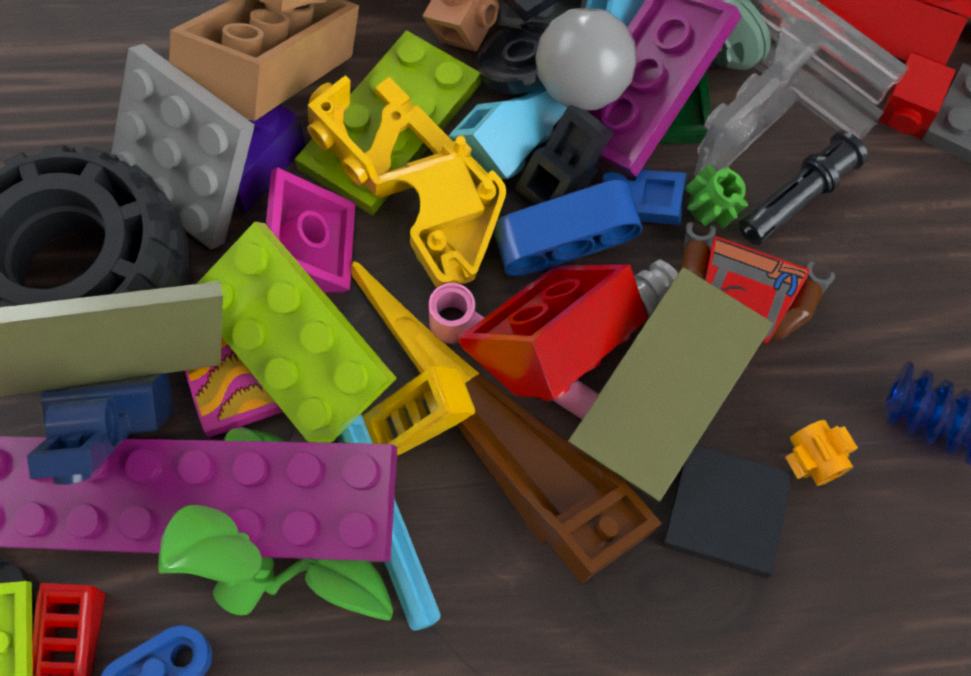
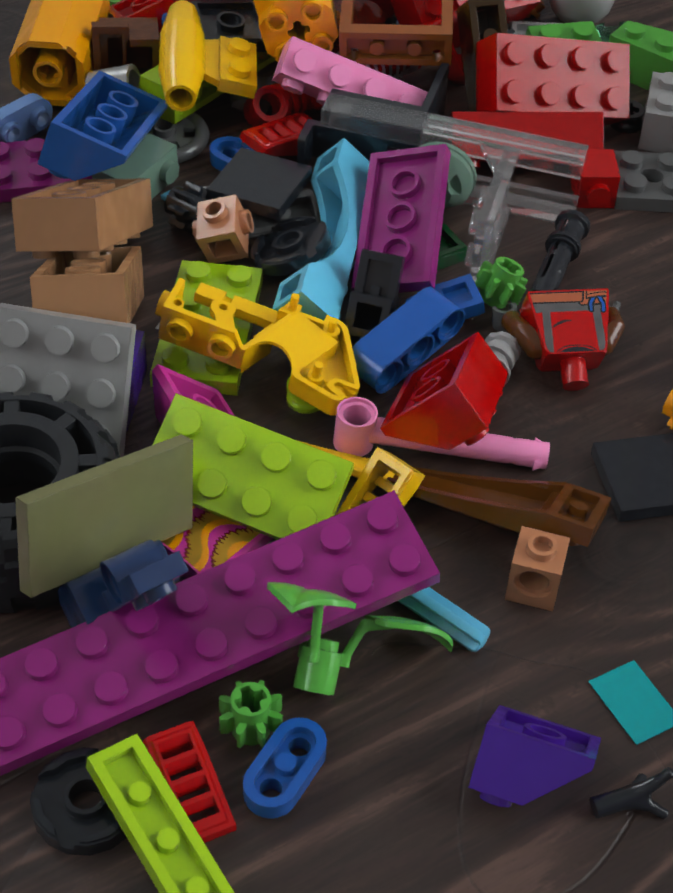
camera: 30 degrees left, 20 degrees down
(163, 611) = (250, 713): none -> bright green gear
(526, 573) = (537, 568): none -> nougat brick
(586, 58) = (355, 213): light grey piece -> none
(670, 384) = (557, 403): olive tile -> none

